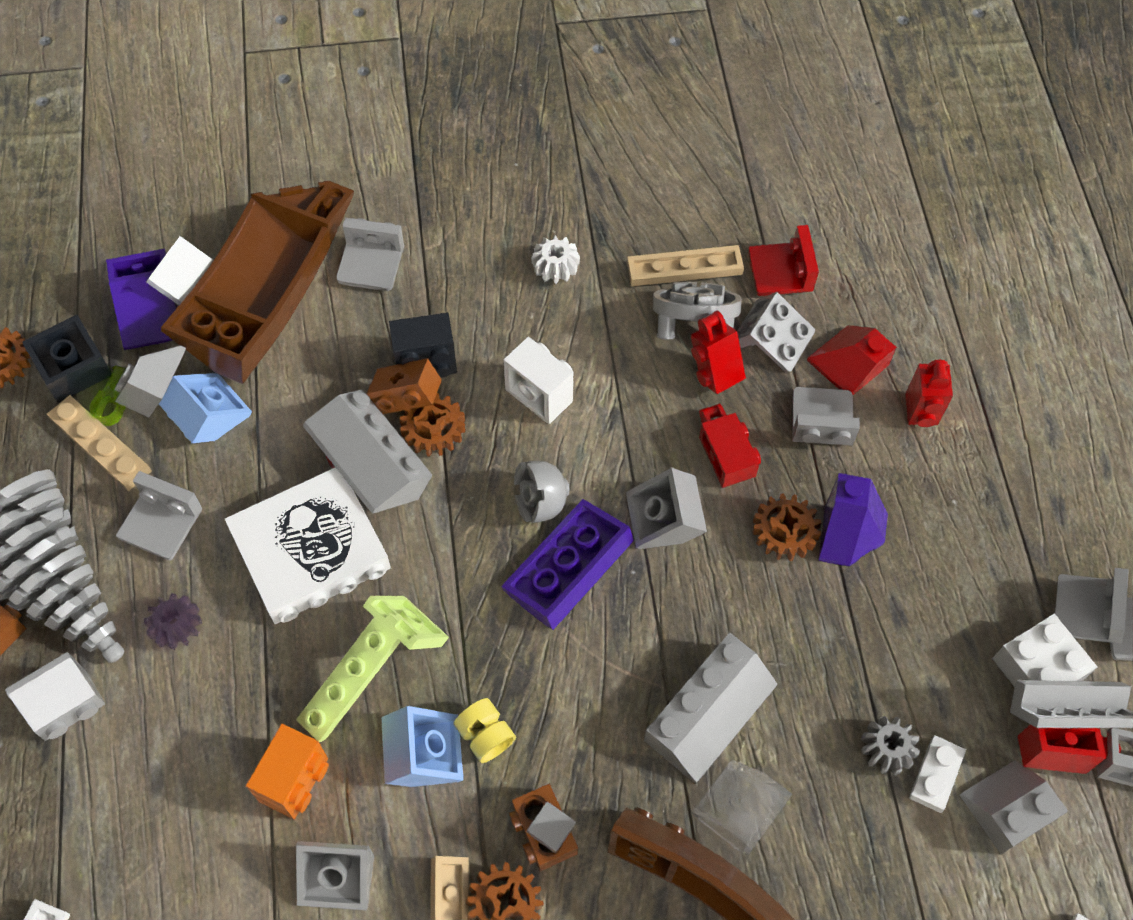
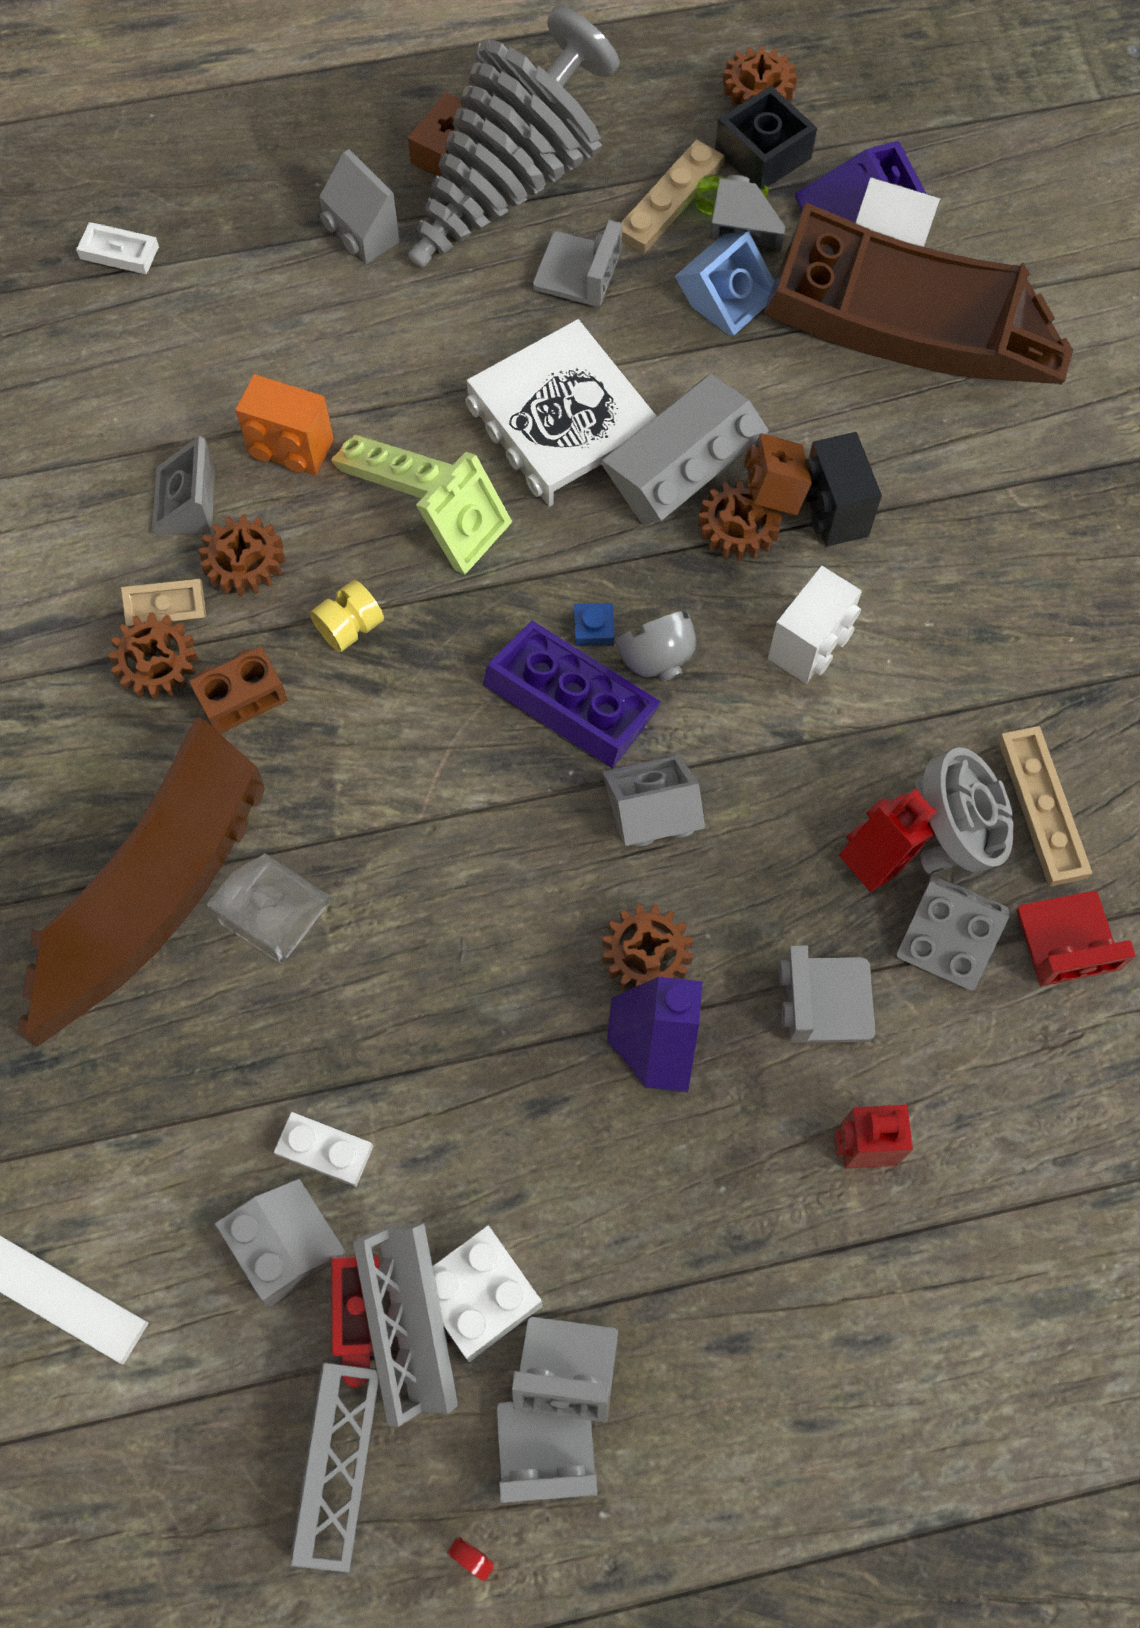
camera: 85 degrees right, 5 degrees up
(160, 618) = (457, 299): clear purple gear -> none
(370, 254) = (976, 423): light grey bracket -> none
(395, 818) = (237, 544): none -> dark orange gear
(421, 748) = (323, 556): light blue slope -> none
(508, 541) = (594, 624): none -> blue plate
(551, 827) = (227, 685): light grey tile -> none
(555, 259) = (1017, 637): white gear -> none
(711, 708) = (391, 864): light grey slope -> none
(728, 446) = (760, 871): red brick -> none
(853, 357) = (929, 1039): red slope -> none
(876, 745) = (341, 1070): light grey gear -> none

